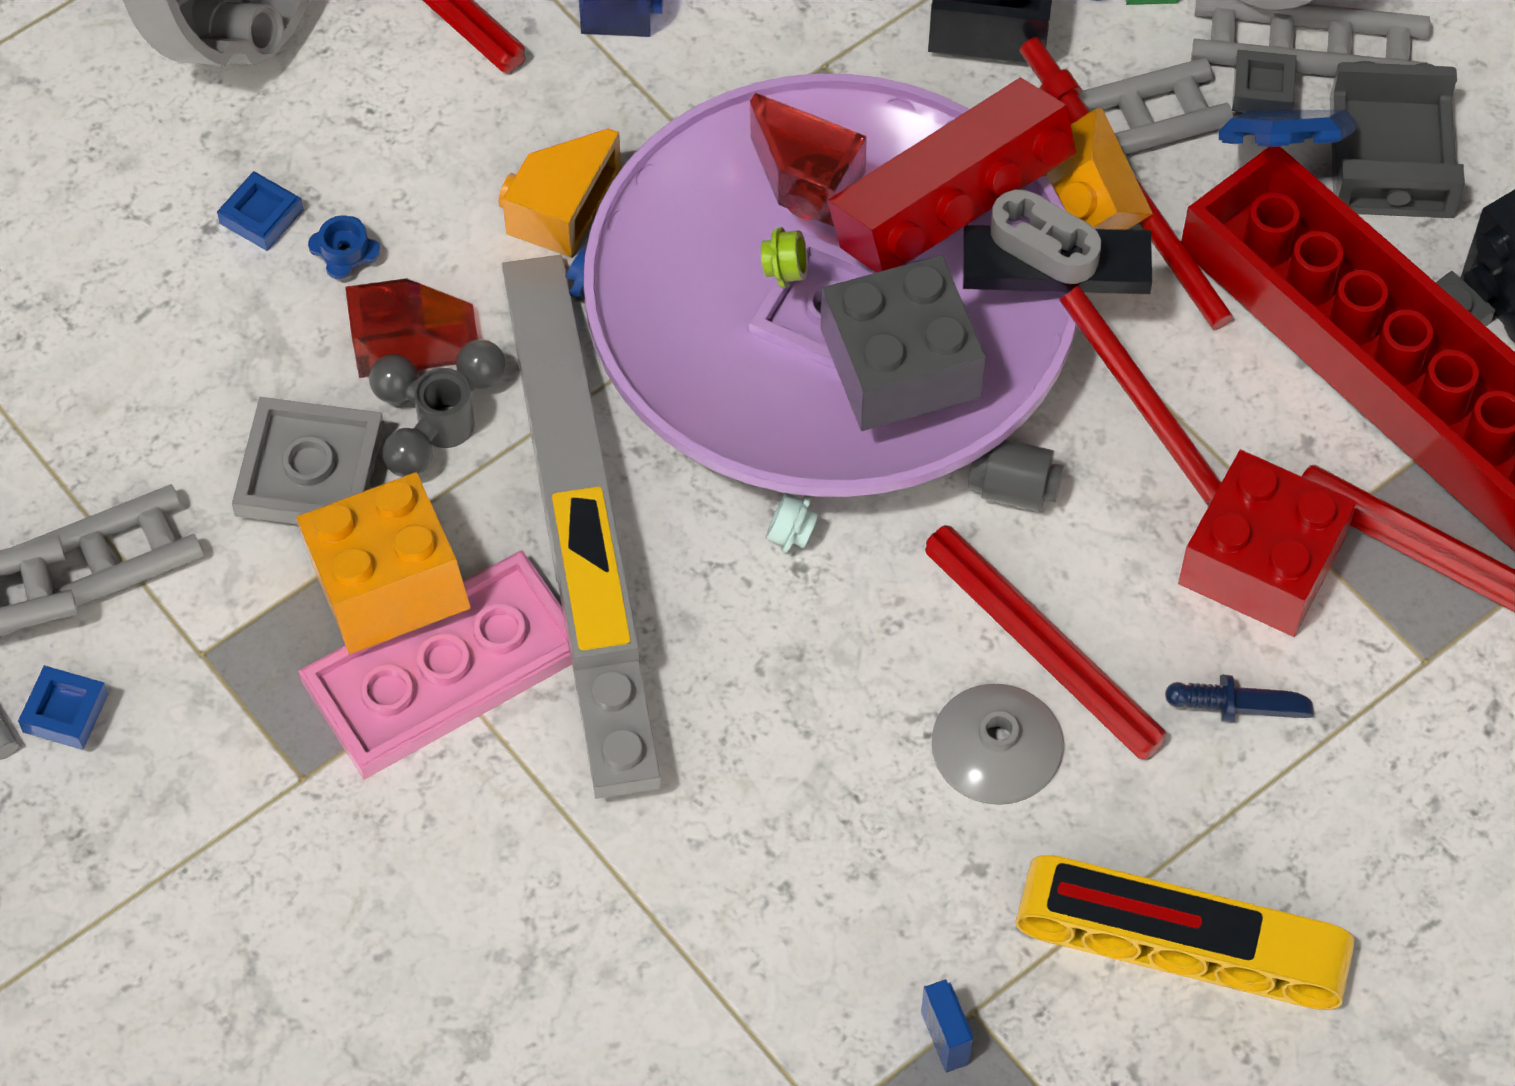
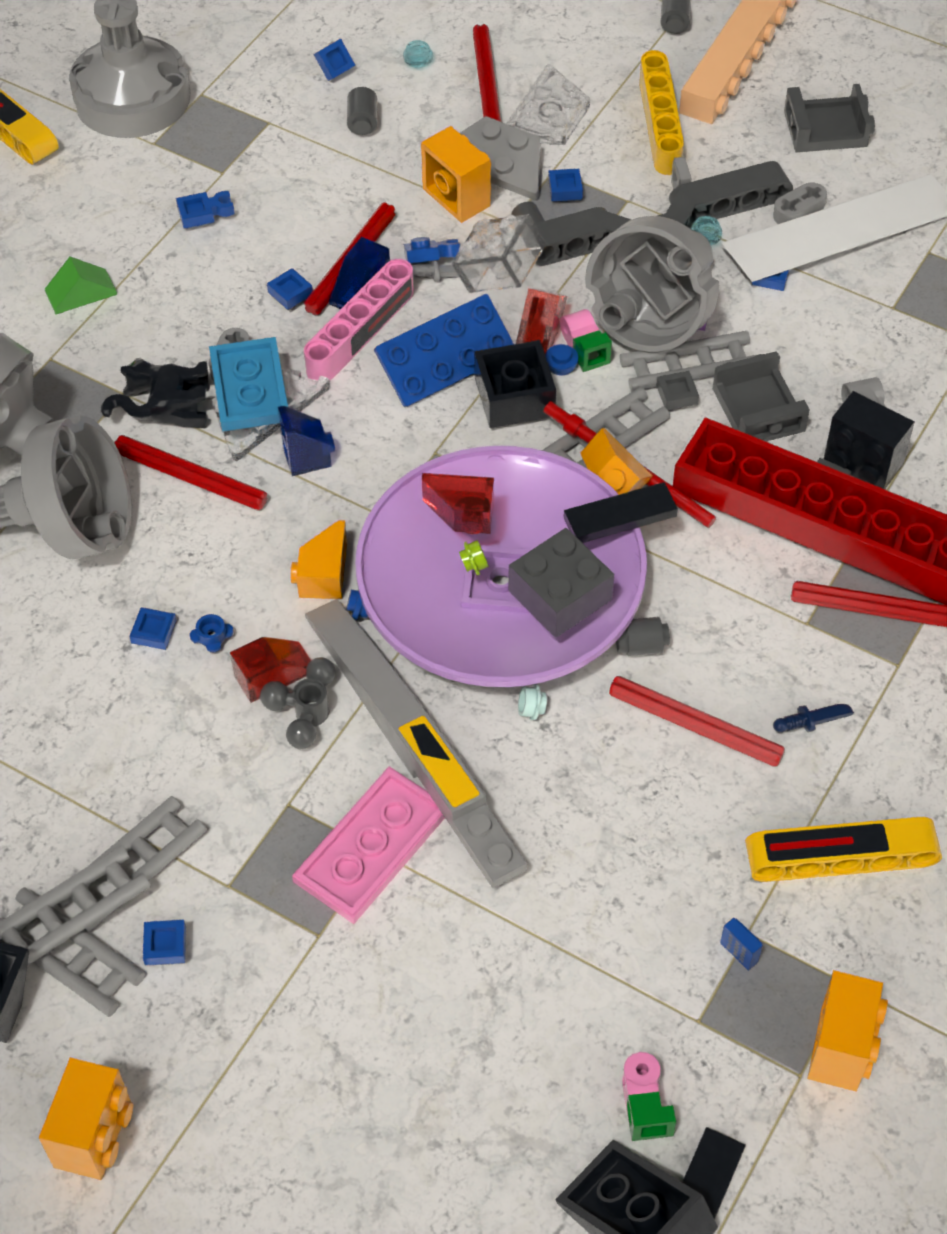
camera: 20 degrees left, 5 degrees down
(305, 458) = (246, 759): light grey plate -> none
(383, 562) = (317, 798): light orange brick -> none
(952, 176) = (547, 486): red brick -> none
(993, 768) = (691, 797): light grey dish -> none
(1045, 236) = (612, 501): light grey beam -> none
(1141, 393) = (693, 571): red bar -> none
(1266, 542) = (792, 629): red brick -> none
(1289, 127) = (705, 408): blue tile -> none

